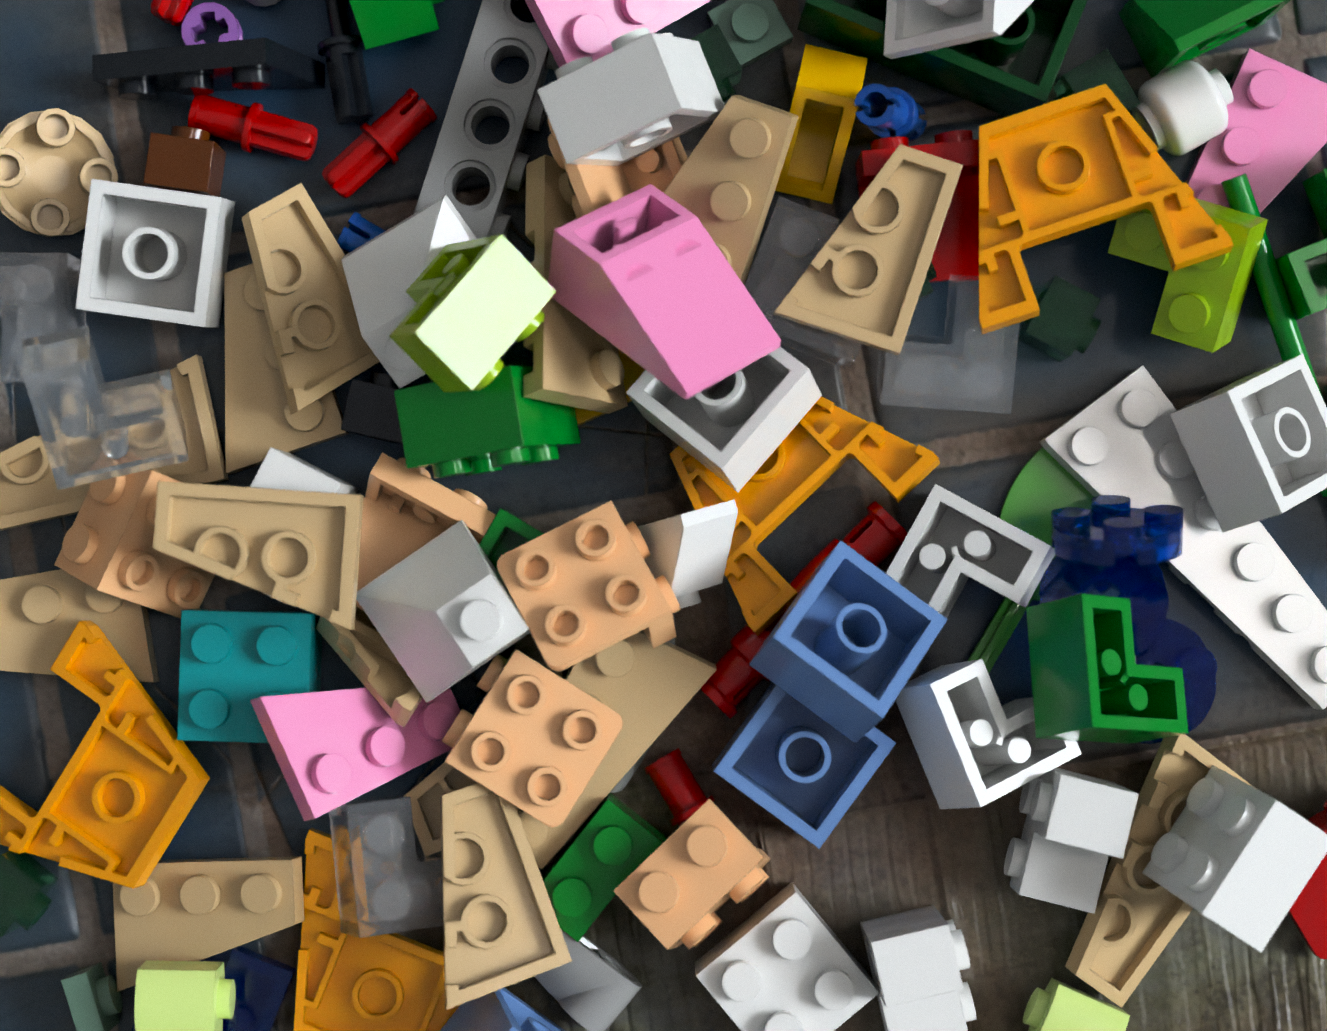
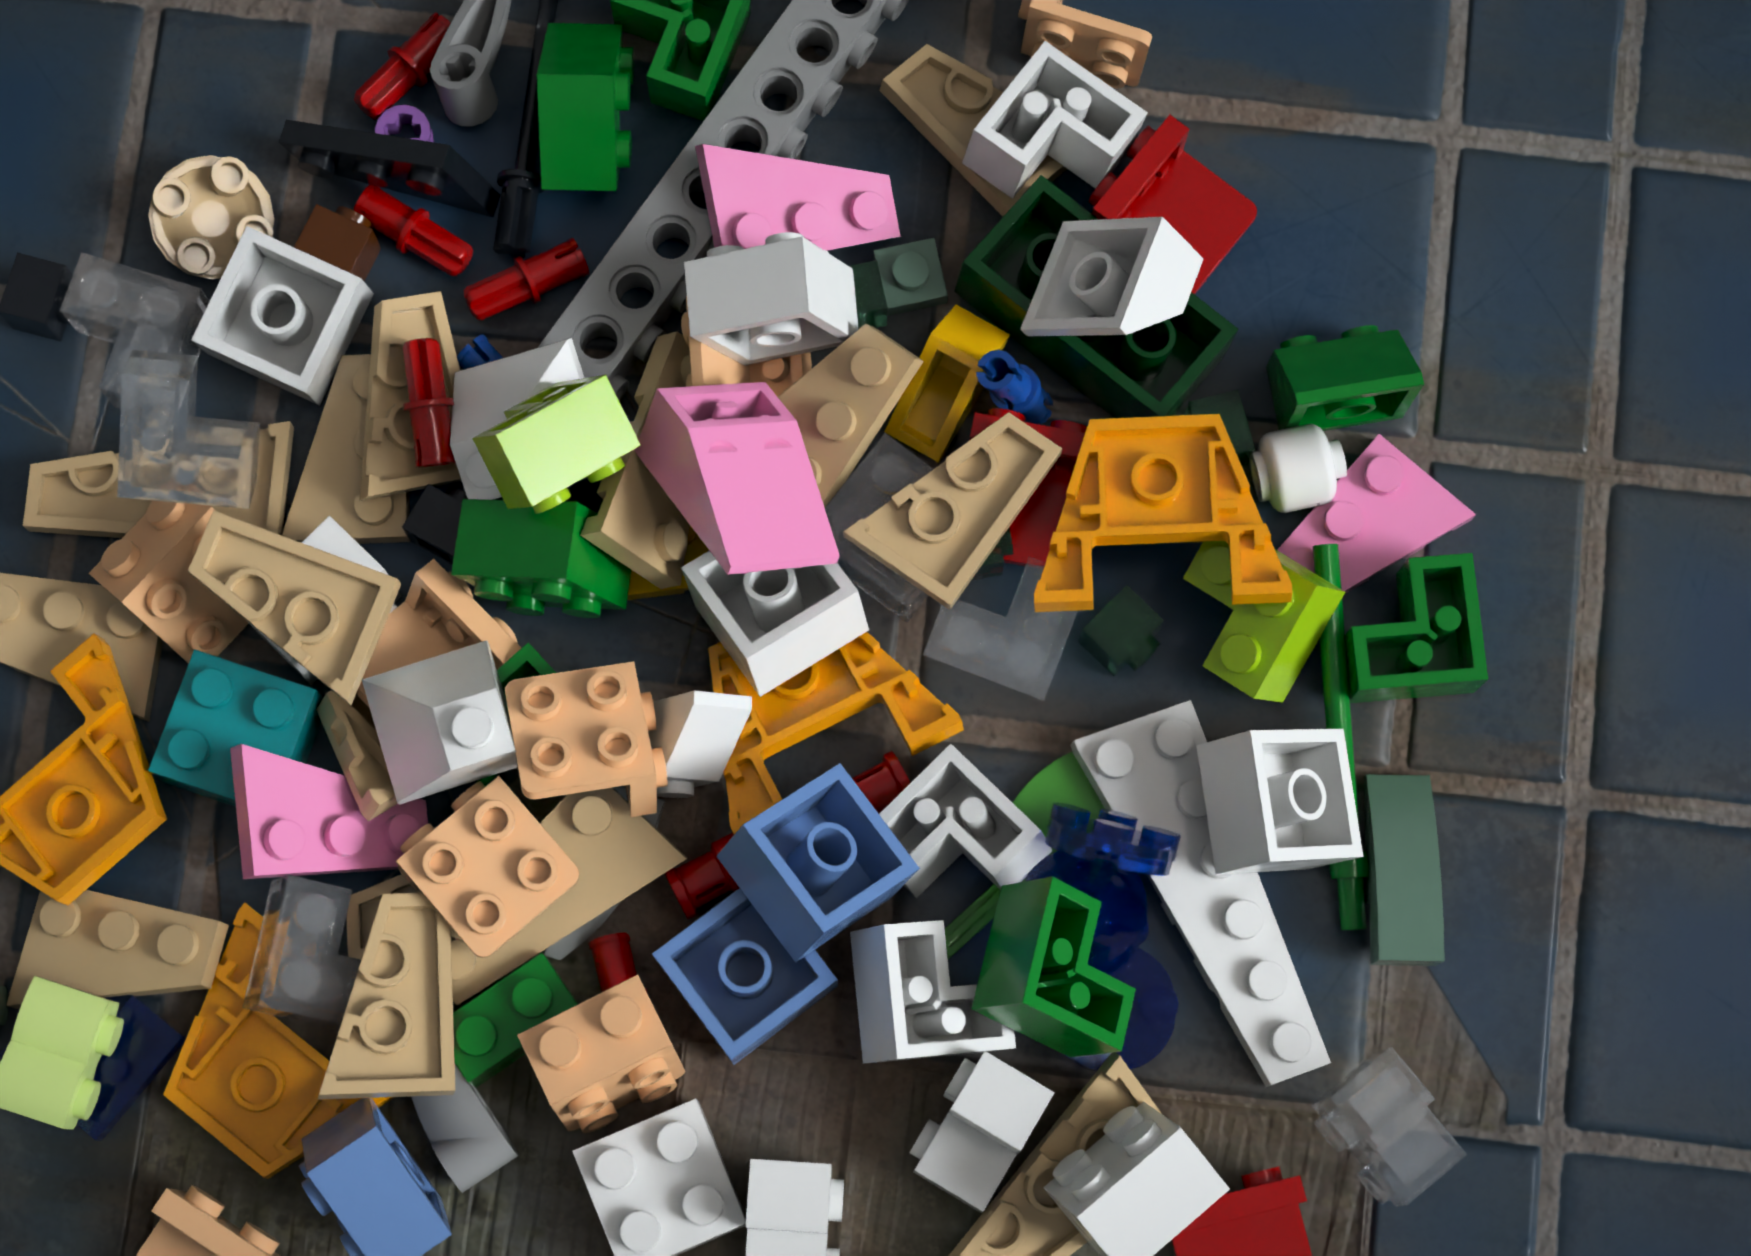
camera: 15 degrees right, 10 degrees down
(326, 301) = (428, 403): none -> red axle

